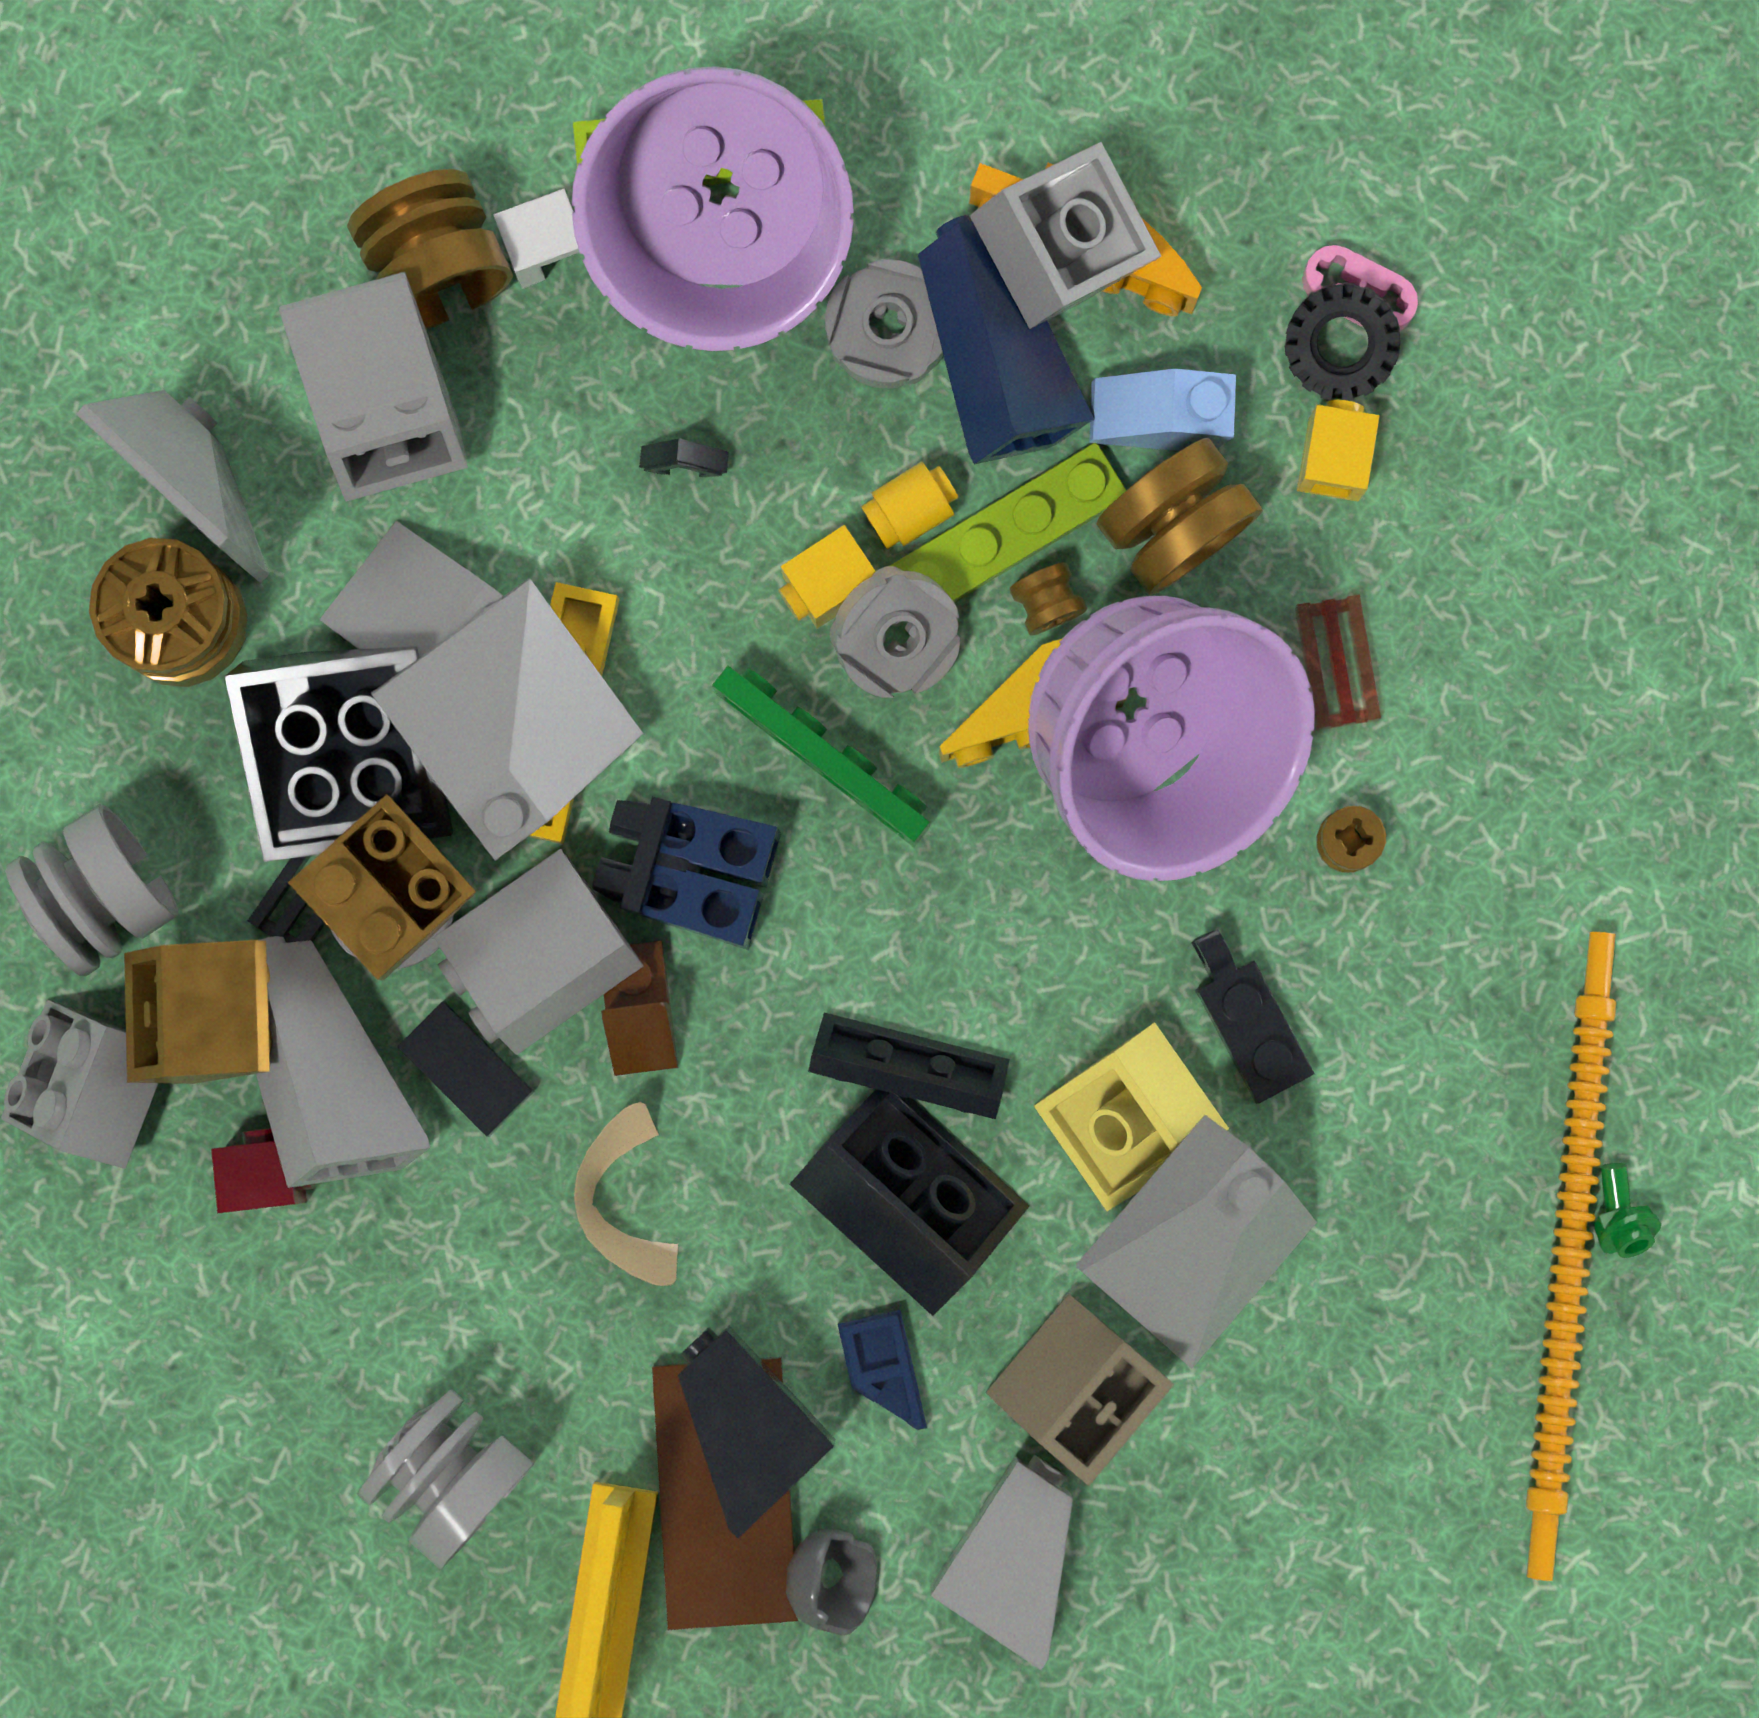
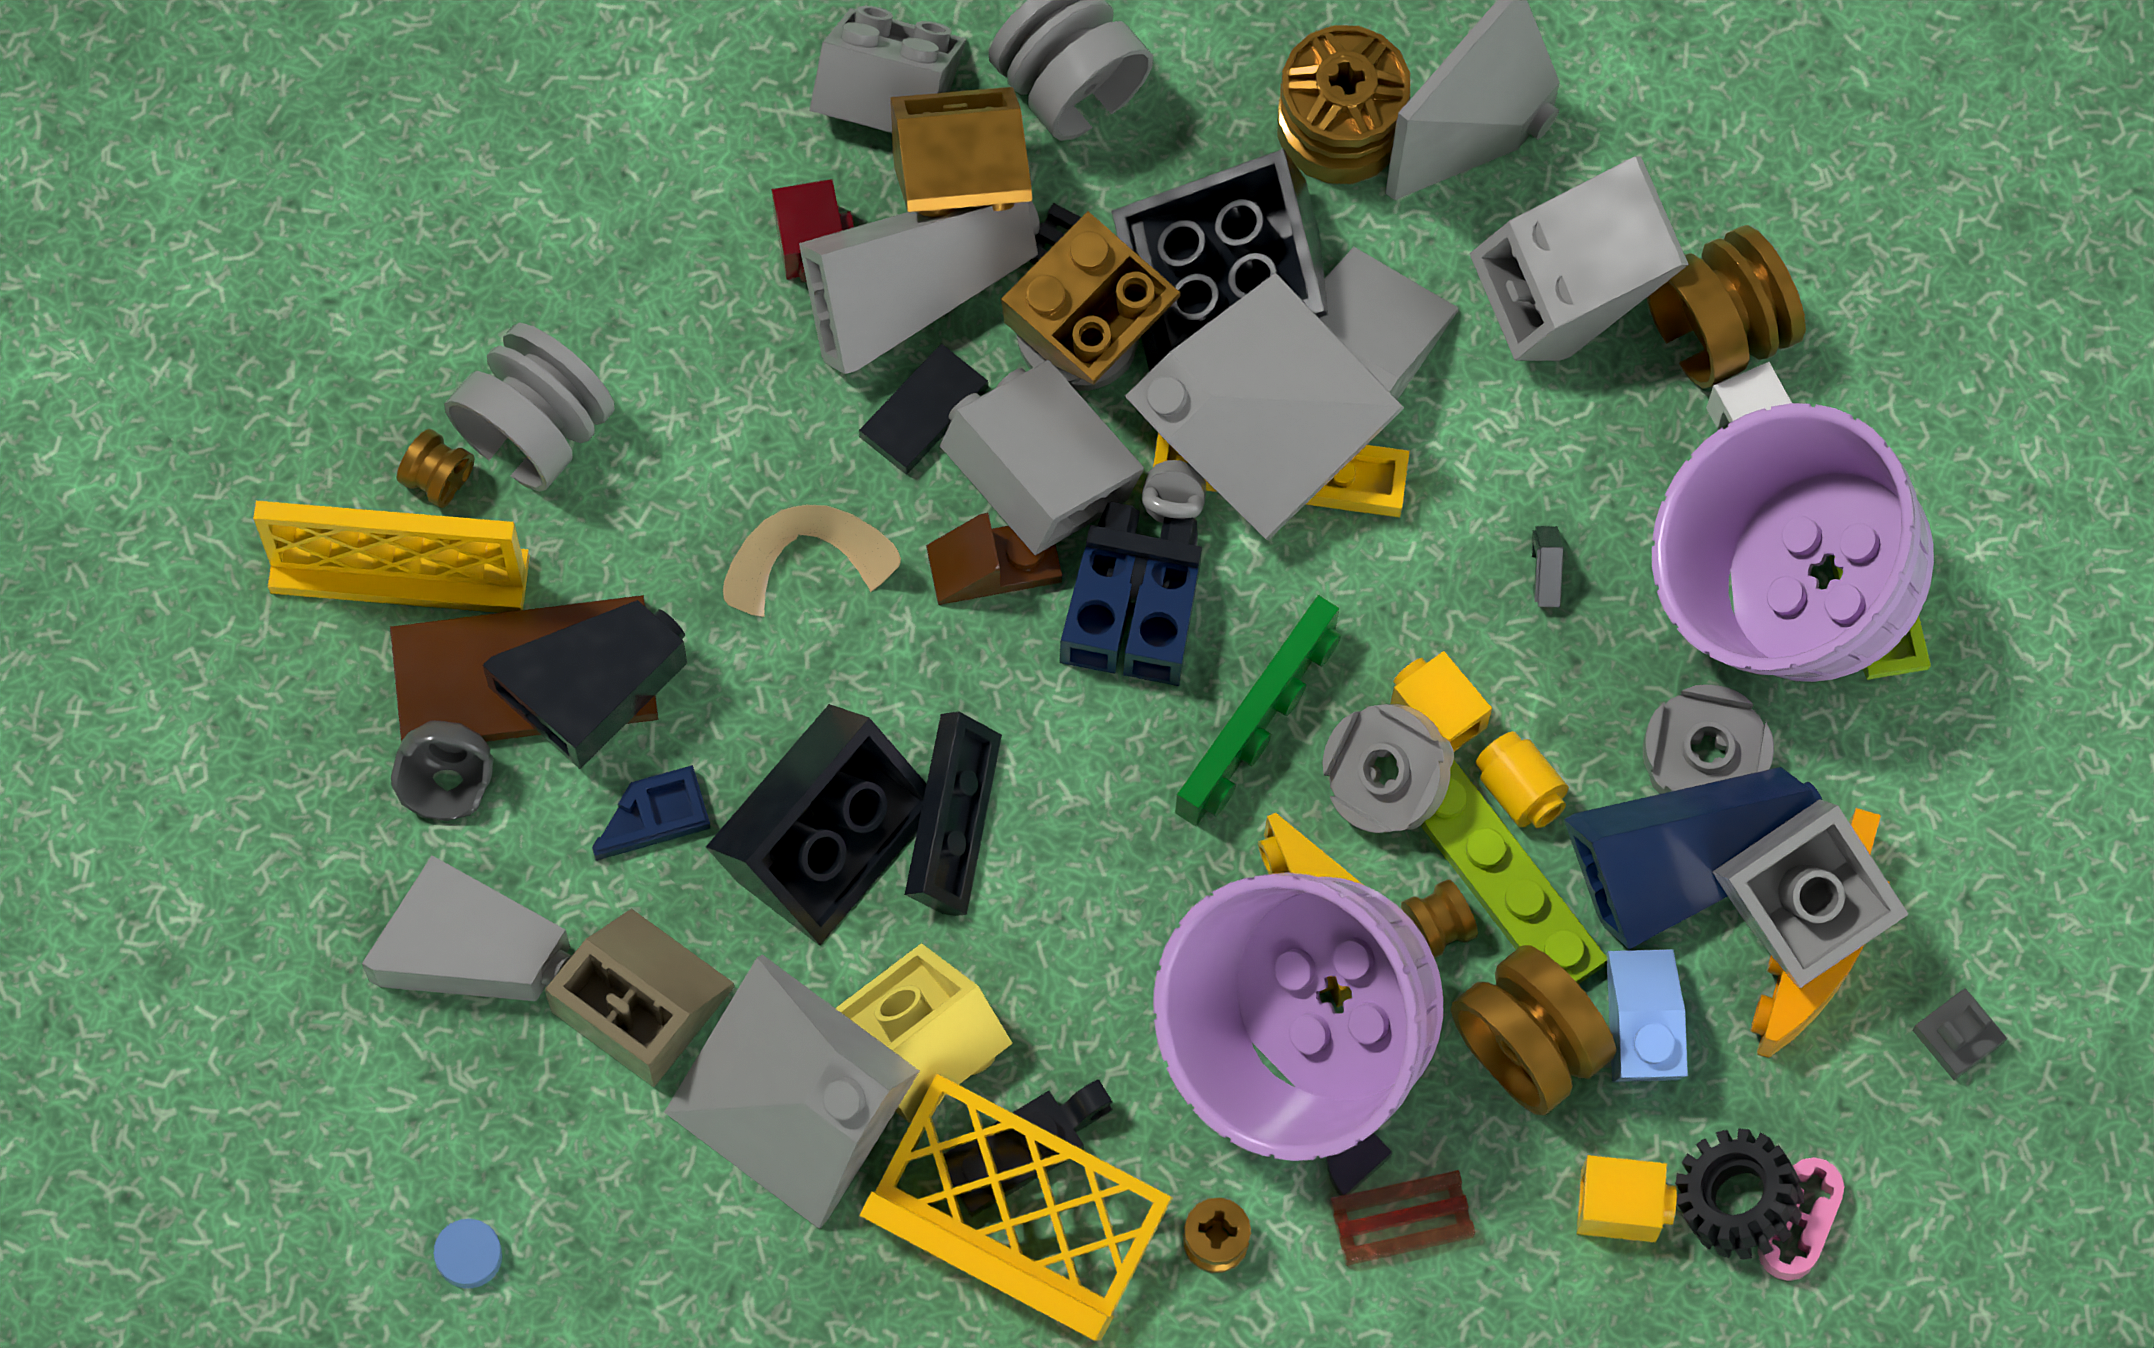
camera: 80 degrees right, 15 degrees down
(497, 1578) = (435, 467): none -> pearl gold wheel
(586, 822) = (1173, 491): none -> light grey tile
(1186, 122) = (1959, 1034): none -> dark grey tile
(1325, 1568) = (468, 1253): none -> medium blue tile
(1374, 1049) = (985, 1256): none -> yellow fence

